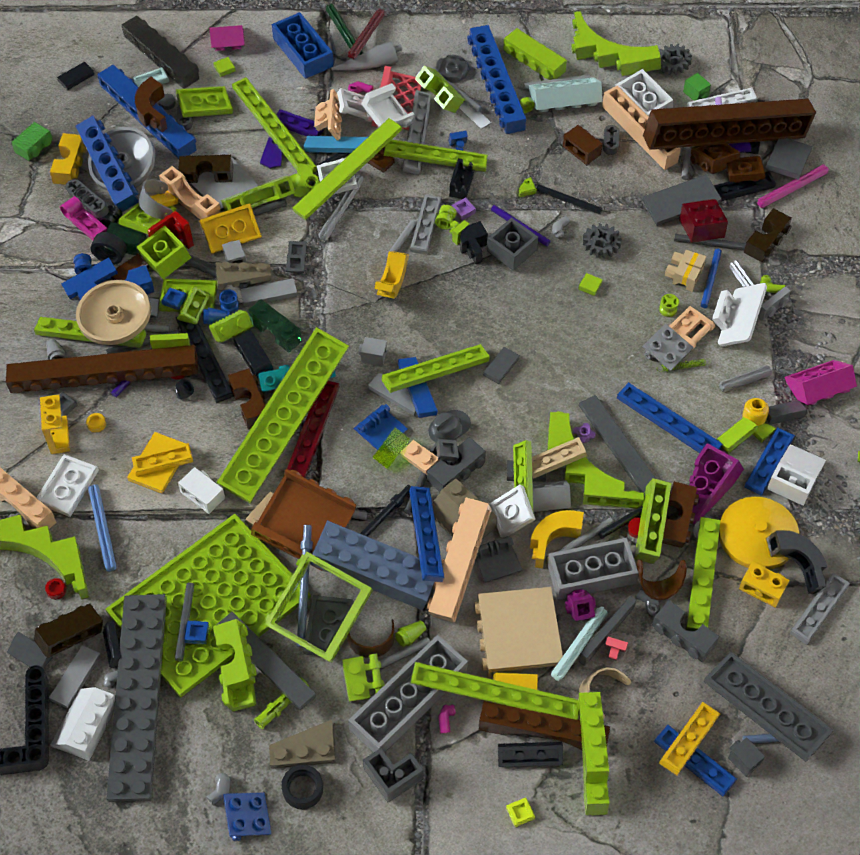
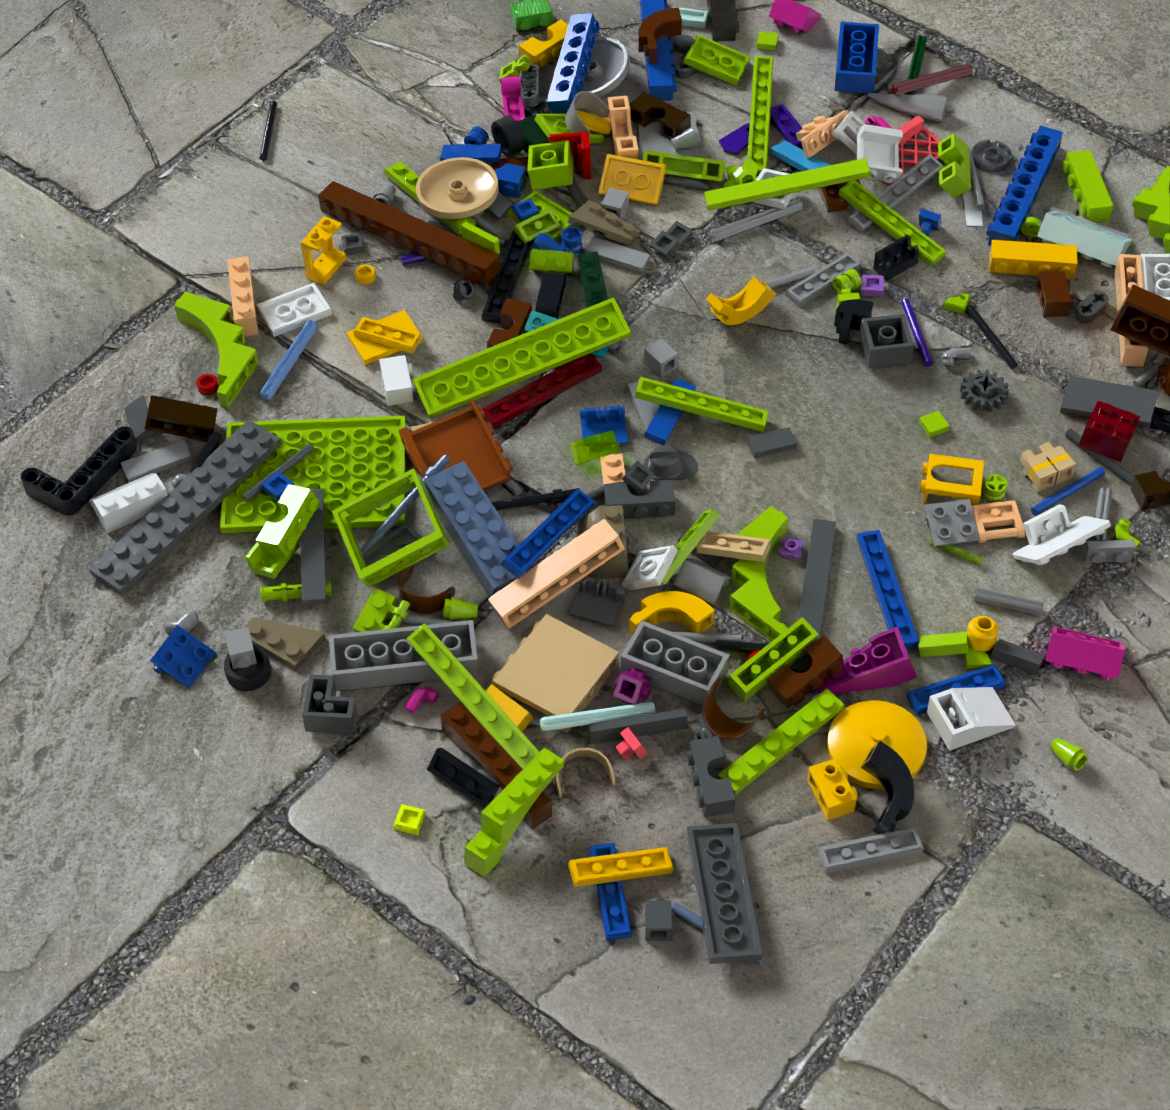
camera: 40 degrees right, 5 degrees down
(60, 192) = (515, 67): none -> lime plate
(241, 174) = (687, 139): none -> light grey cone
(293, 777) = (240, 648): none -> light grey brick
(547, 127) = (1031, 258): none -> yellow brick
(654, 307) = (936, 487): none -> yellow panel

